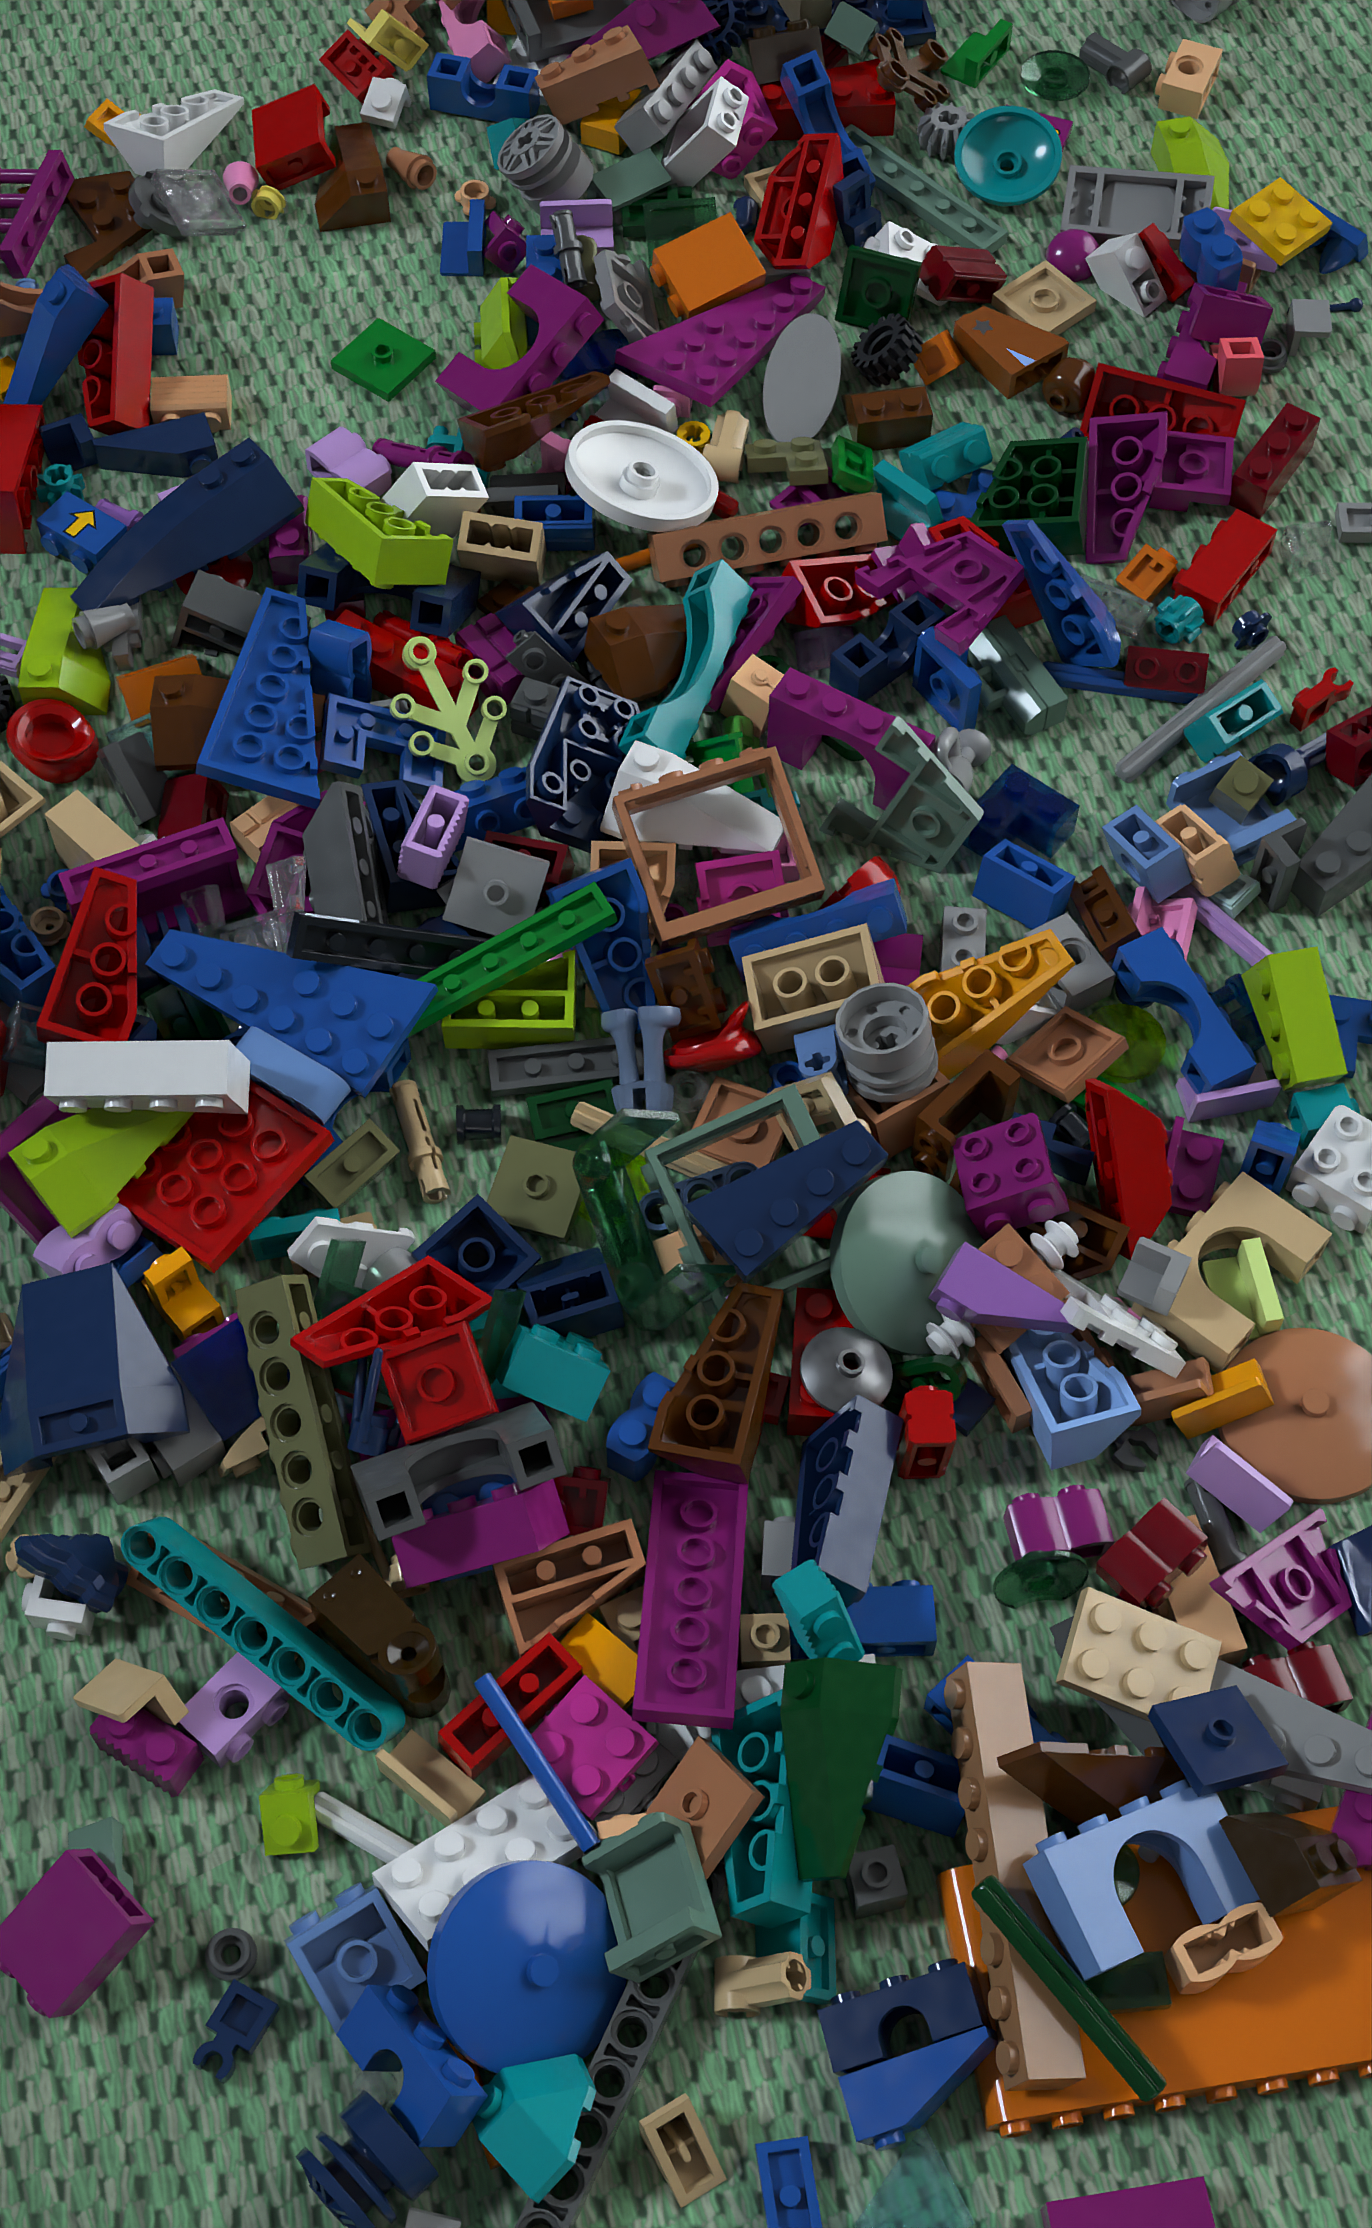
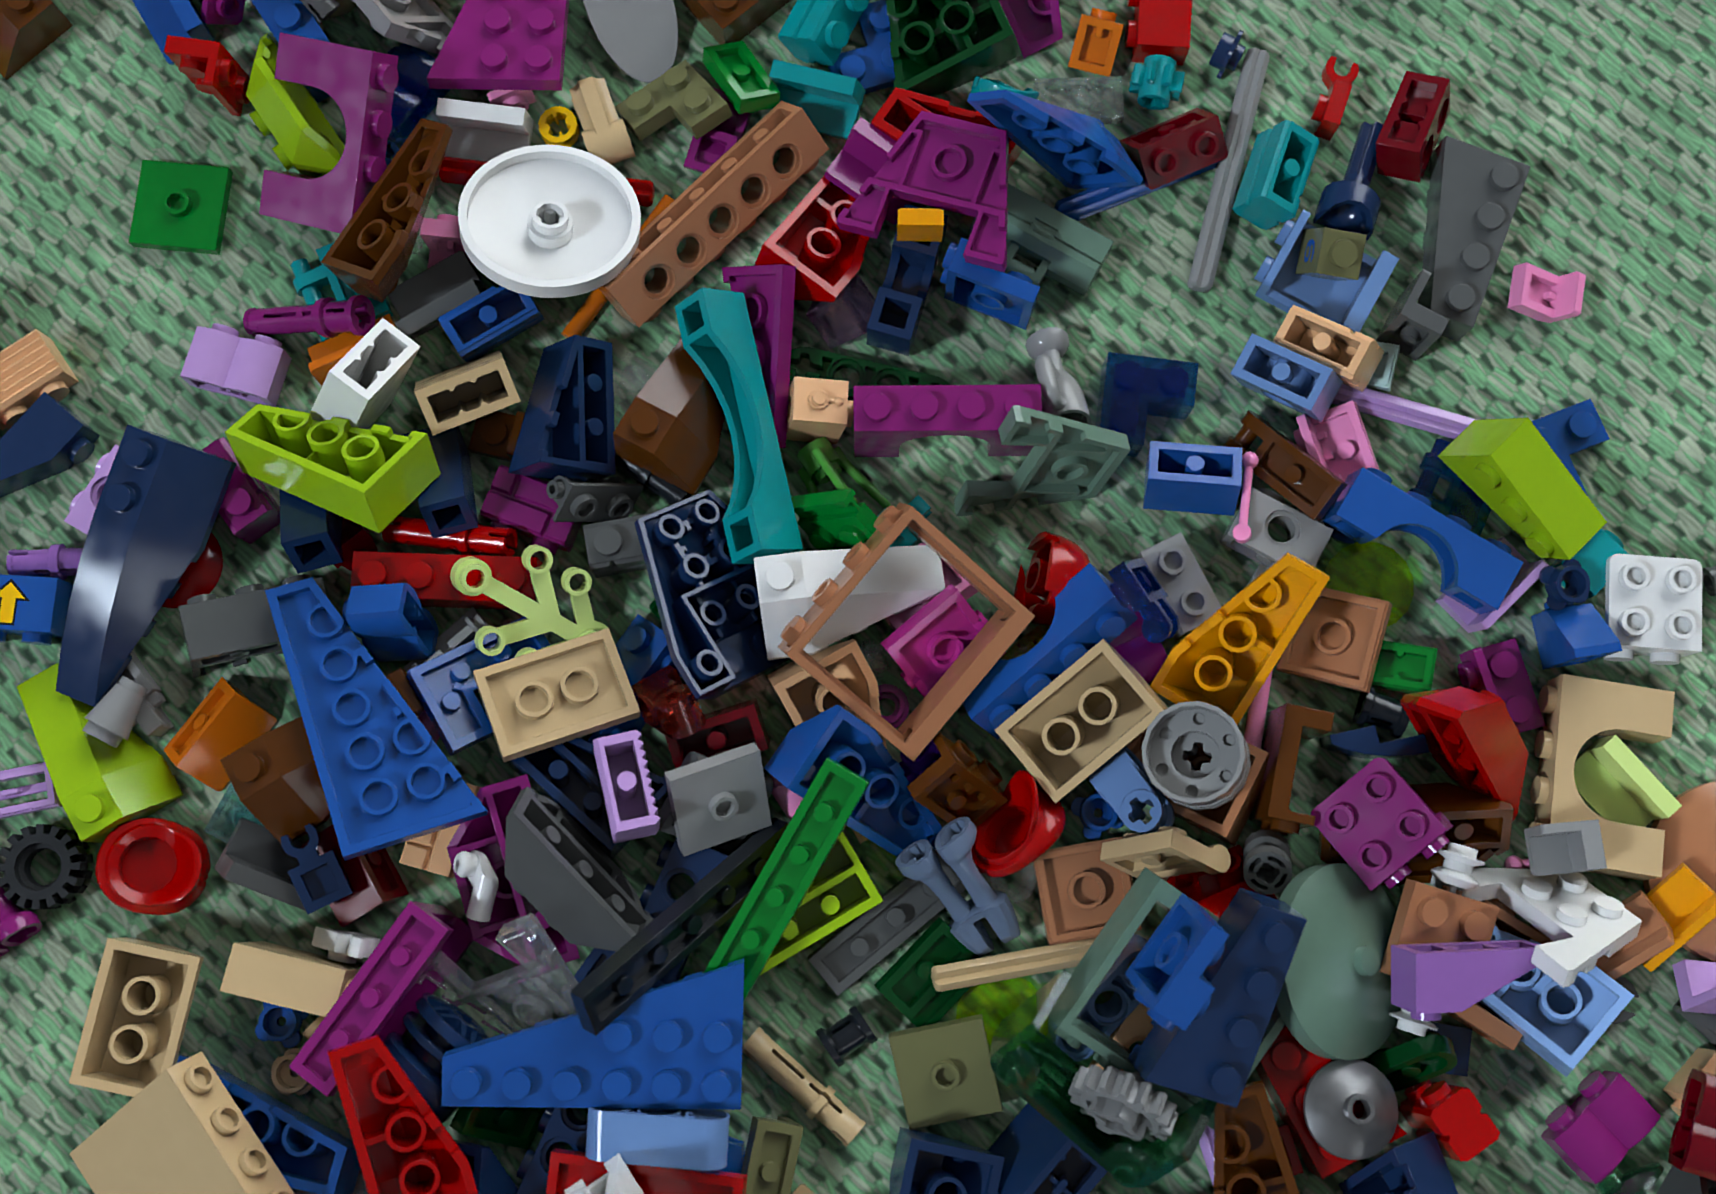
camera: 30 degrees left, 20 degrees up
(168, 792) = (319, 877): none -> dark blue plate
(284, 846) = (483, 880): none -> white arm
(413, 757) = (556, 694): none -> tan plate
(465, 278) = (210, 70): none -> red bracket
(503, 814) = (669, 704): none -> clear red leg
(658, 1232) = (1123, 1103): none -> light grey gear
(753, 1140) = (1173, 962): none -> blue plate
(908, 1156) = (1267, 850): none -> dark grey wheel
(916, 601) = (920, 224): none -> light orange tile
(924, 922) = (1139, 588): none -> clear blue plate
(1076, 894) = (1242, 531): none -> bright pink hinge
(1292, 1095) = (1576, 583): none -> dark blue plate

